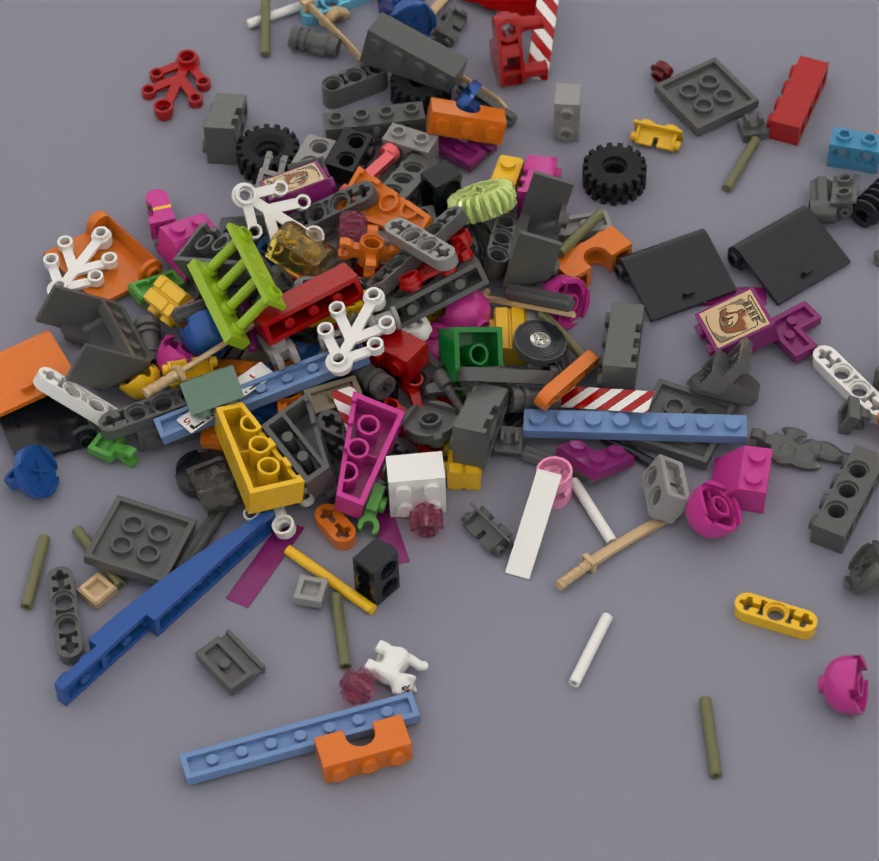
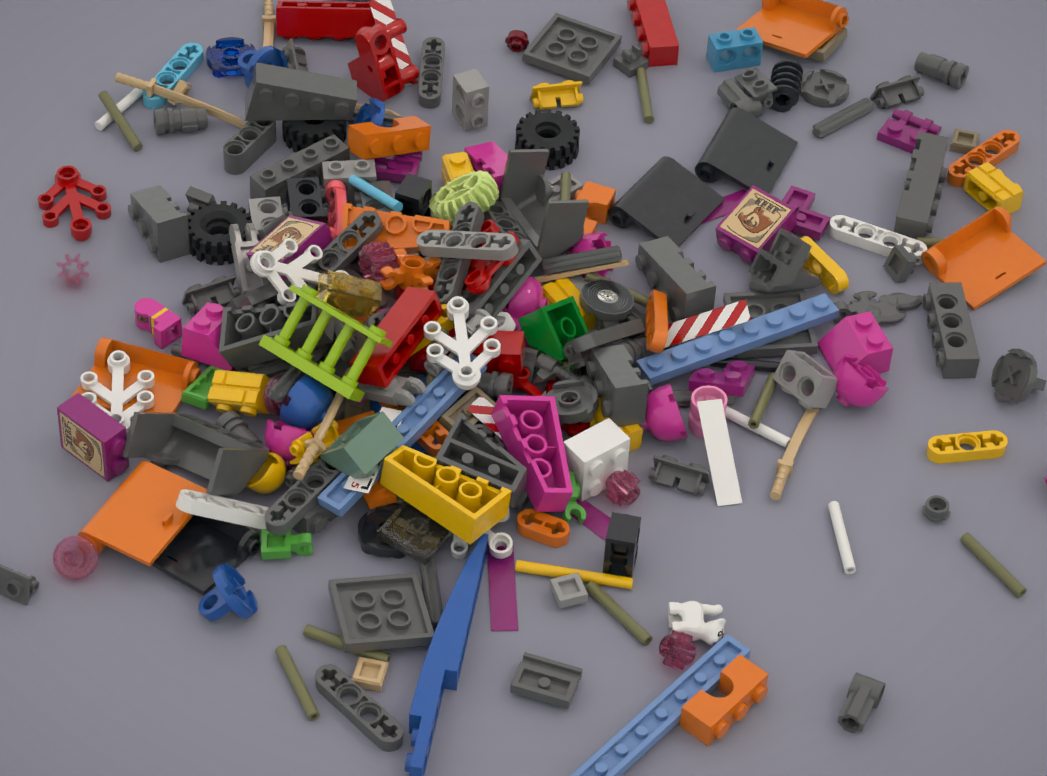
camera: 35 degrees left, 5 degrees down
(26, 291) = (92, 436): none -> magenta brick
(127, 142) = (80, 266): none -> clear pink gear
(211, 204) = (220, 289): none -> dark grey hinge
(271, 118) = (197, 197): none -> dark grey tile
(409, 168) = (375, 193): none -> medium azure bar
(488, 802) = (862, 697): none -> dark grey piece
(511, 468) = (663, 415): none -> dark pink cylinder
(586, 52) = (431, 72): none -> dark grey beam
(613, 495) = (762, 402): none -> olive piece
(697, 655) = (936, 508): none -> dark grey plate
(772, 387) = (821, 265): none -> yellow beam

